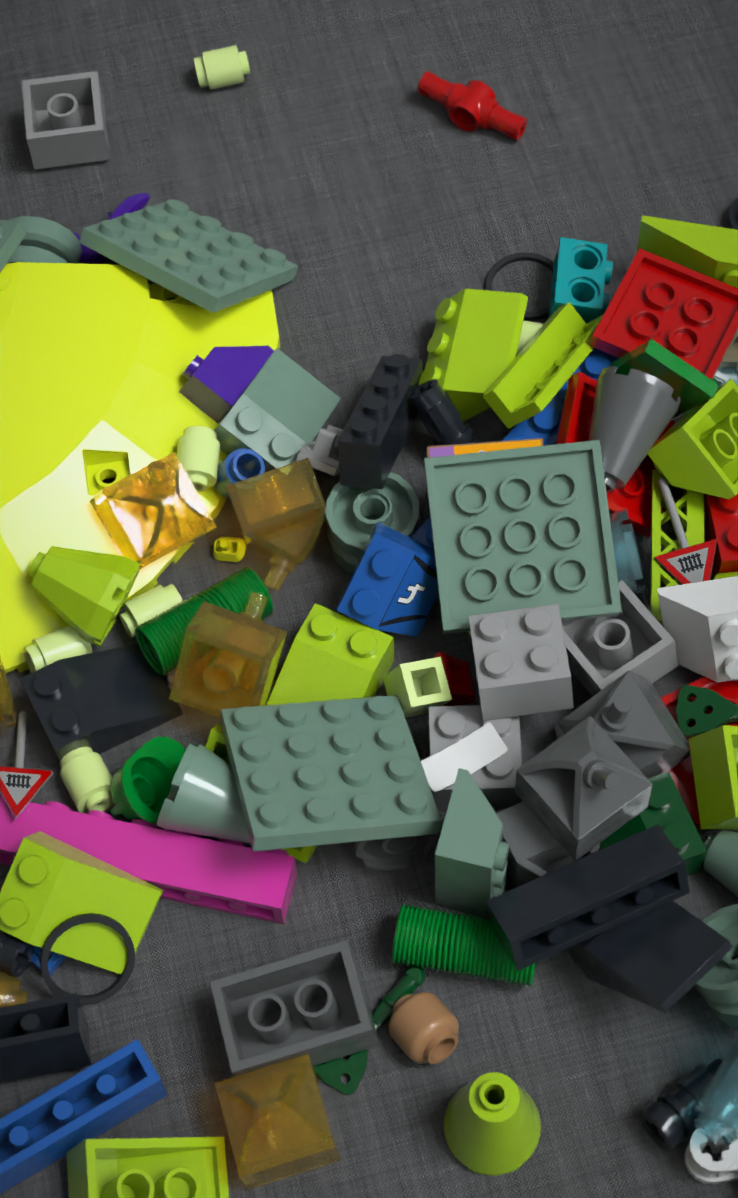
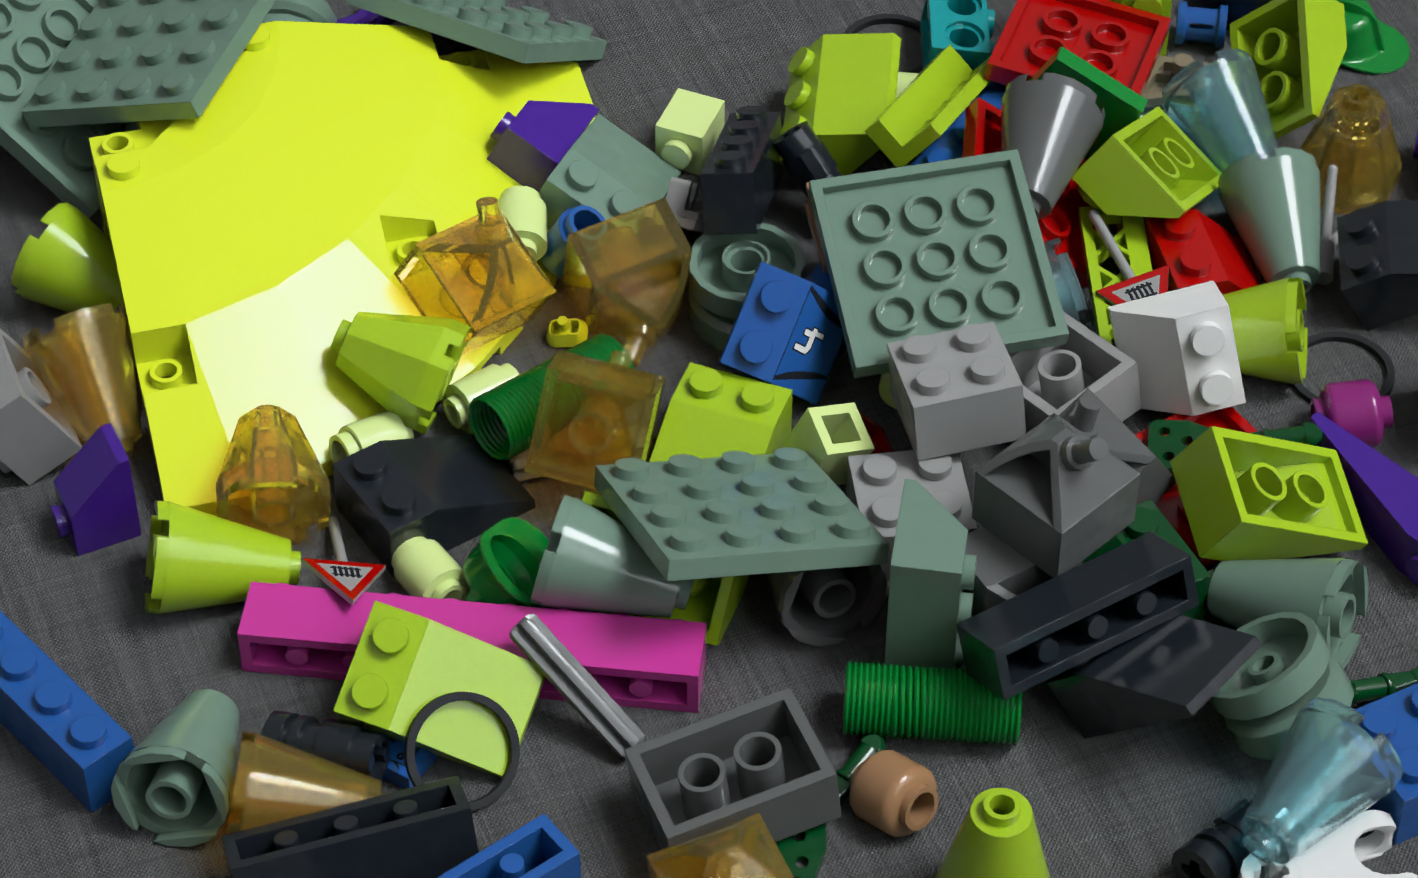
camera: 10 degrees left, 15 degrees down
(184, 907) = (576, 684): none -> axle
(350, 363) = (689, 130): none -> yellowish green brick
(468, 754) = (884, 506): white sticker -> none

